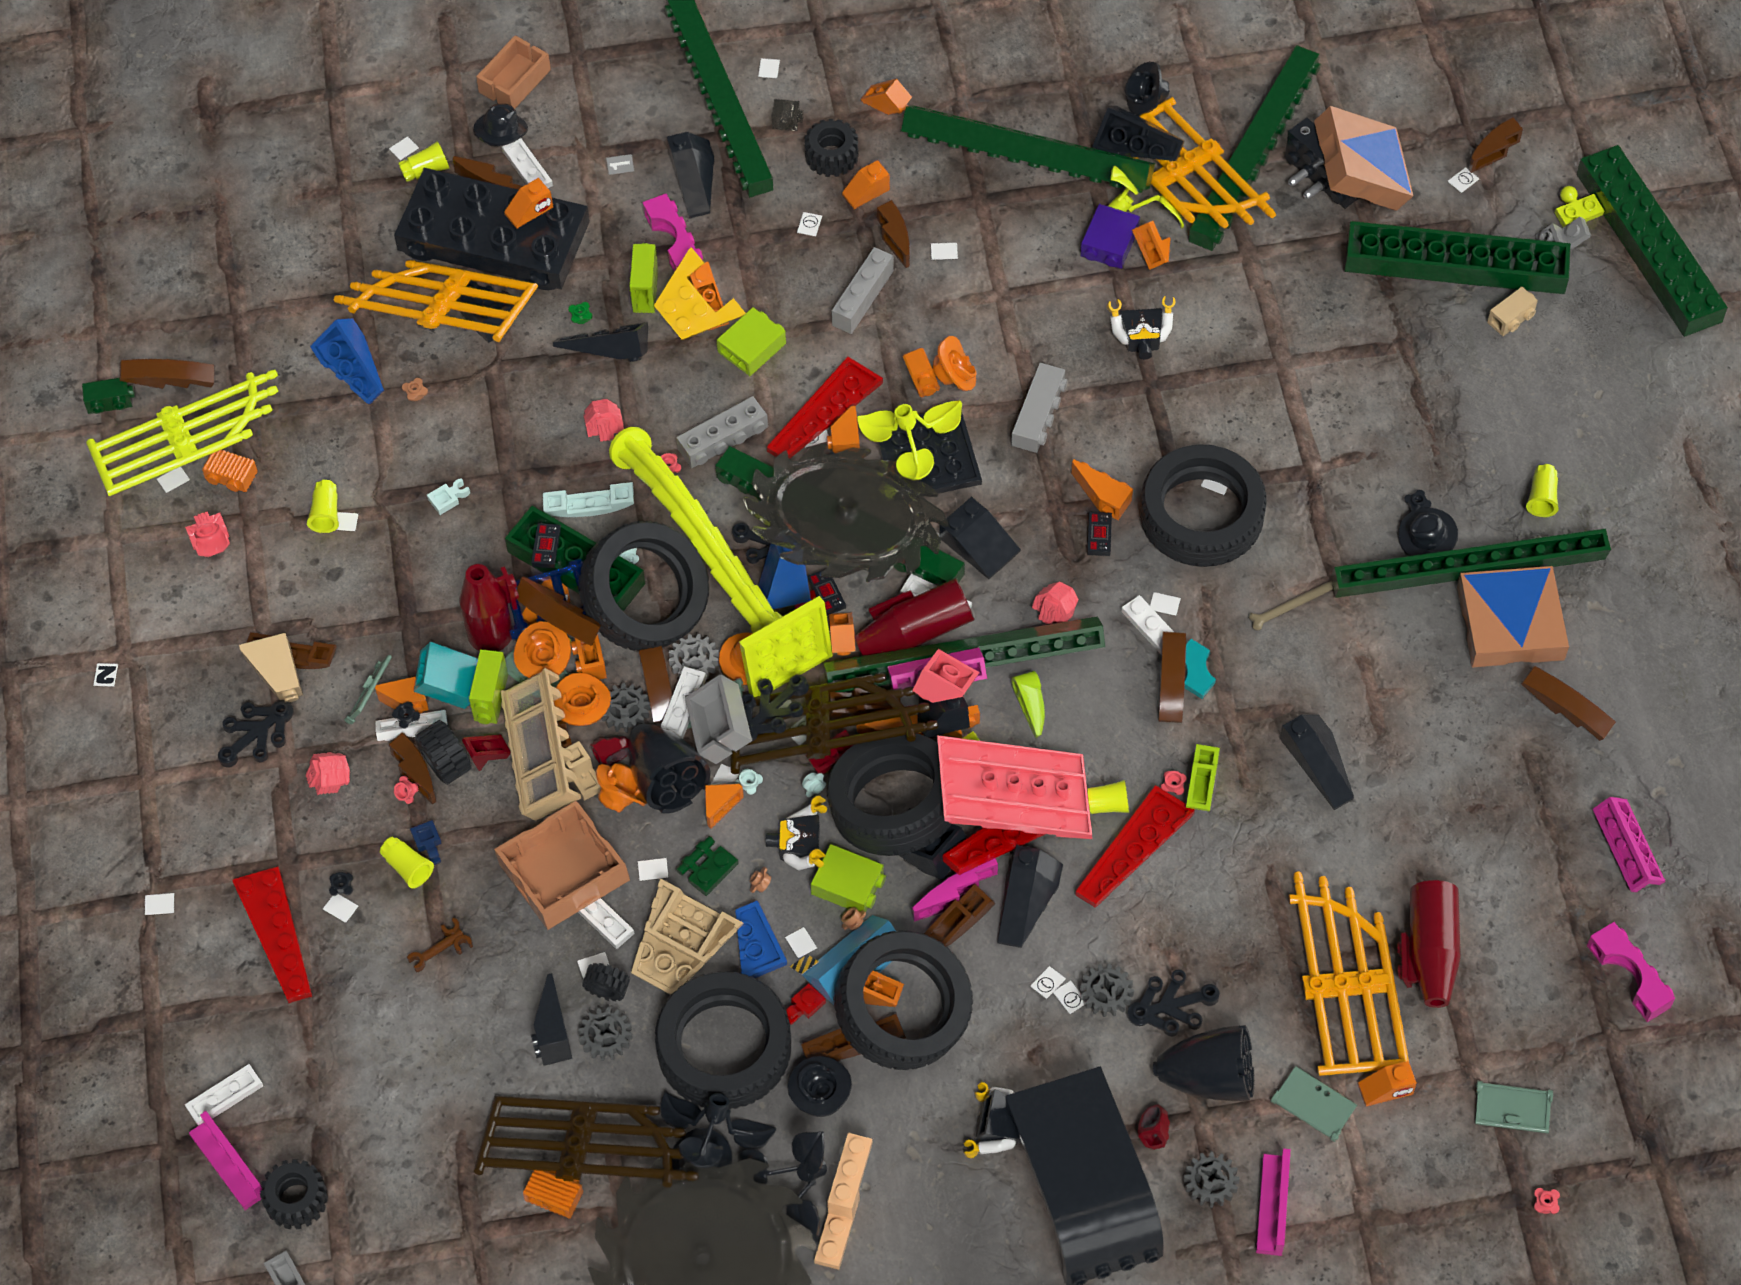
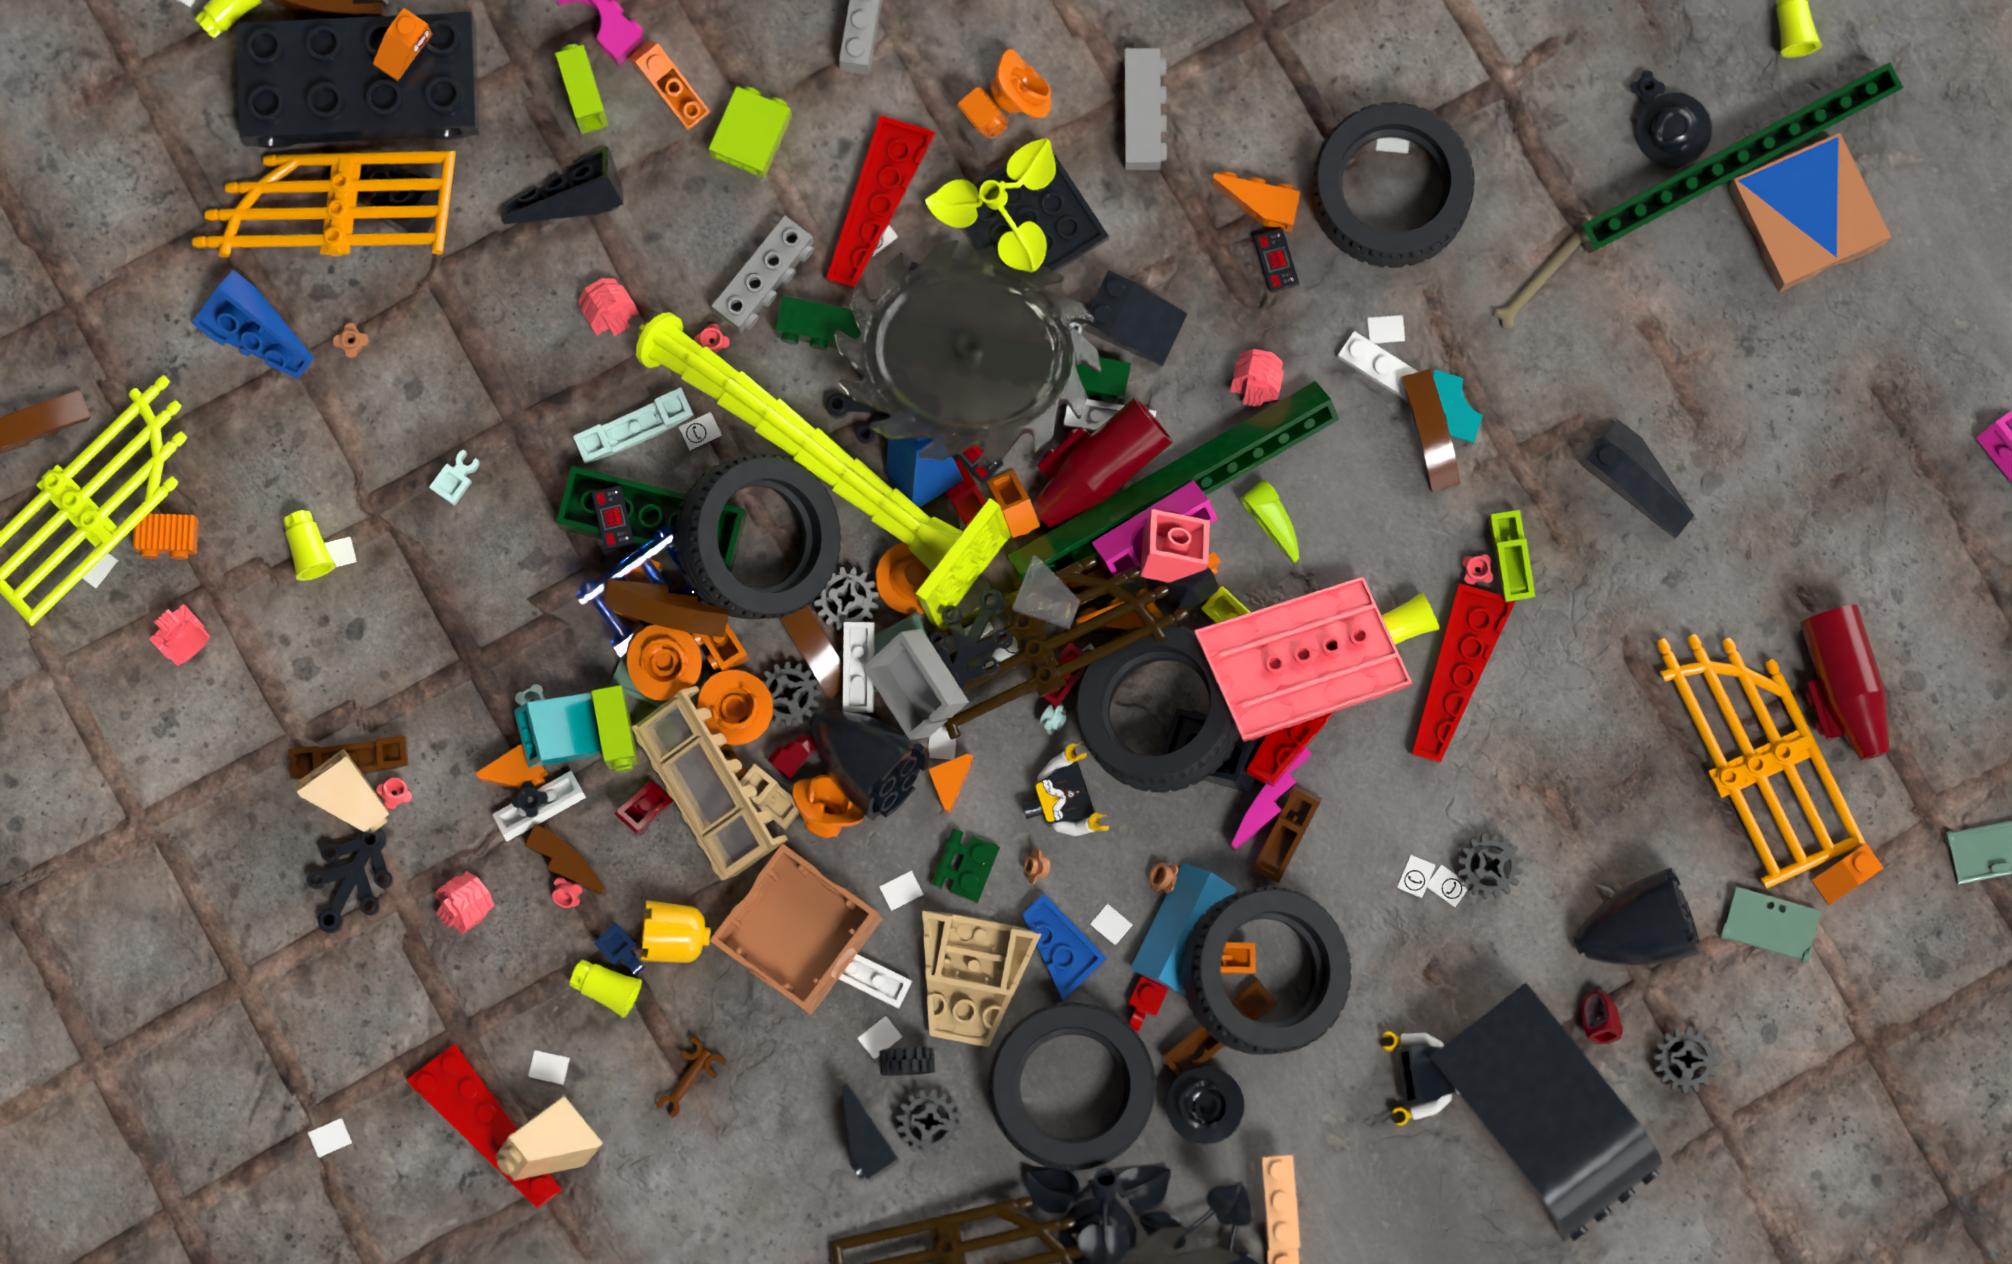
camera: 20 degrees left, 20 degrees up
(105, 674) = (131, 862): sticker -> none
(312, 684) = (397, 786): none -> coral plate
(313, 949) = (549, 1143): none -> slope
(336, 879) = (546, 1043): black plate -> none
(368, 686) = (469, 778): sand green door -> none
(443, 752) = (597, 835): black tyre -> none
(469, 837) = (673, 933): none -> yellow cylinder
(486, 607) = (588, 641): dark red piece -> none
(580, 318) = (520, 167): green plate -> none
(636, 516) = (700, 431): none -> white sticker
(686, 308) = (650, 113): yellow wing -> none
(751, 775) = (972, 731): light aqua plate -> none
(804, 964) = (1127, 954): sticker -> none
(837, 689) = (1045, 596): none -> clear wing
(844, 432) = (917, 228): orange slope -> none
(848, 879) = (1141, 829): lime brick -> none
(1030, 887) = (1356, 771): black wedge -> none
(1170, 1005) = (1567, 859): black plant -> none
(1273, 1203) = (1764, 1063): dark pink fence -> none
(1568, 702) = (1908, 307): reddish brown slope -> none

